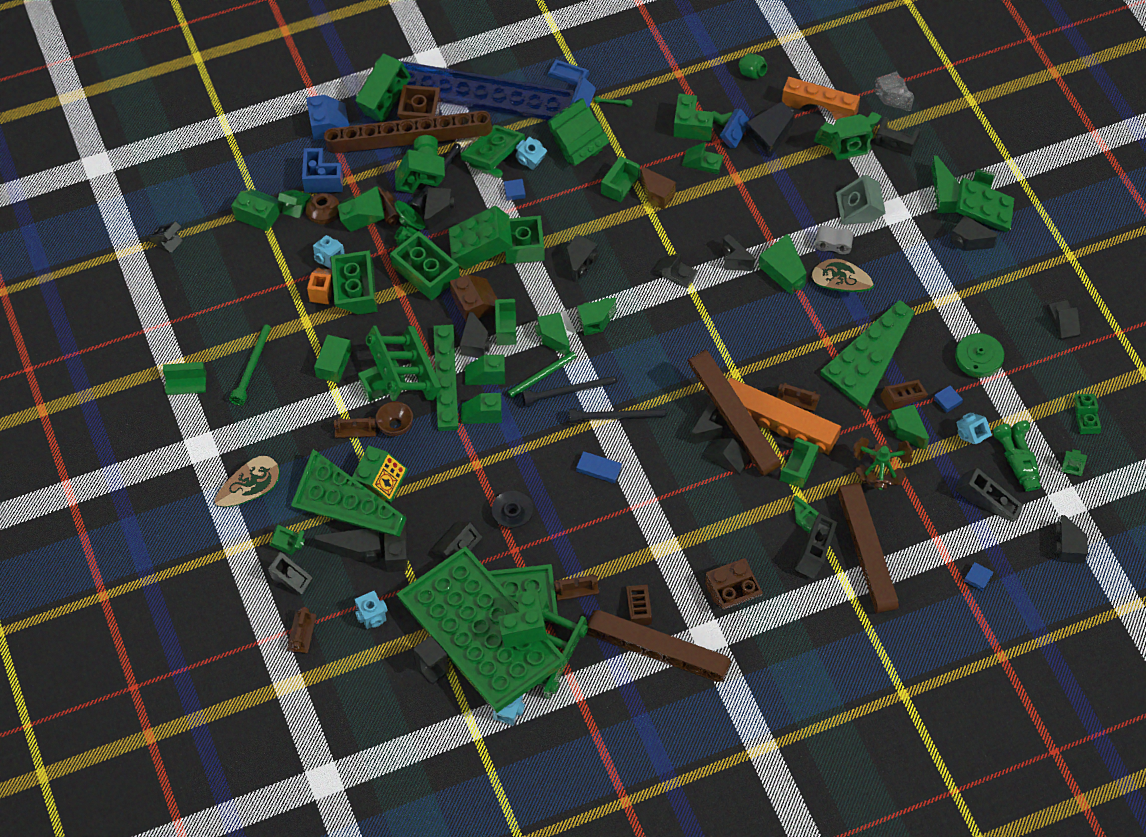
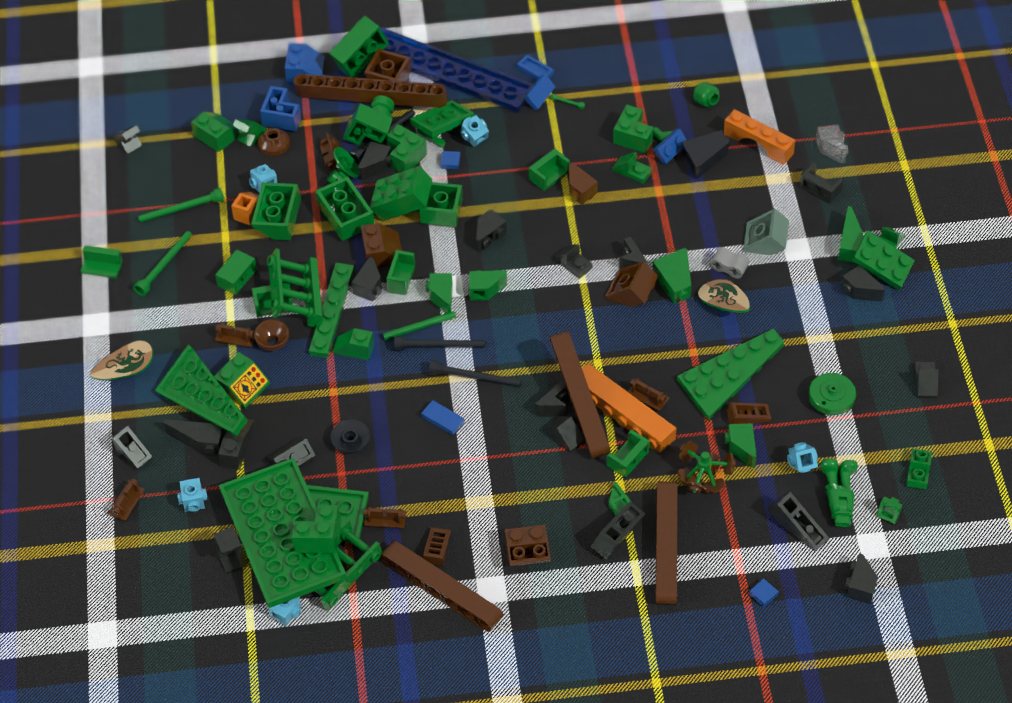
camera: 15 degrees right, 5 degrees down
(282, 280) = (215, 196): none -> green piece
(287, 540) = (140, 418): green bracket -> none
(361, 209) = (305, 149): green slope -> none
(467, 186) = (406, 148): none -> green brick
(486, 370) = (370, 311): green slope -> none
(577, 132) = (522, 121): green slope -> none
(744, 284) = (632, 285): none -> reddish brown slope
(848, 135) = (774, 172): green slope -> none
(948, 399) = (789, 427): blue tile -> none

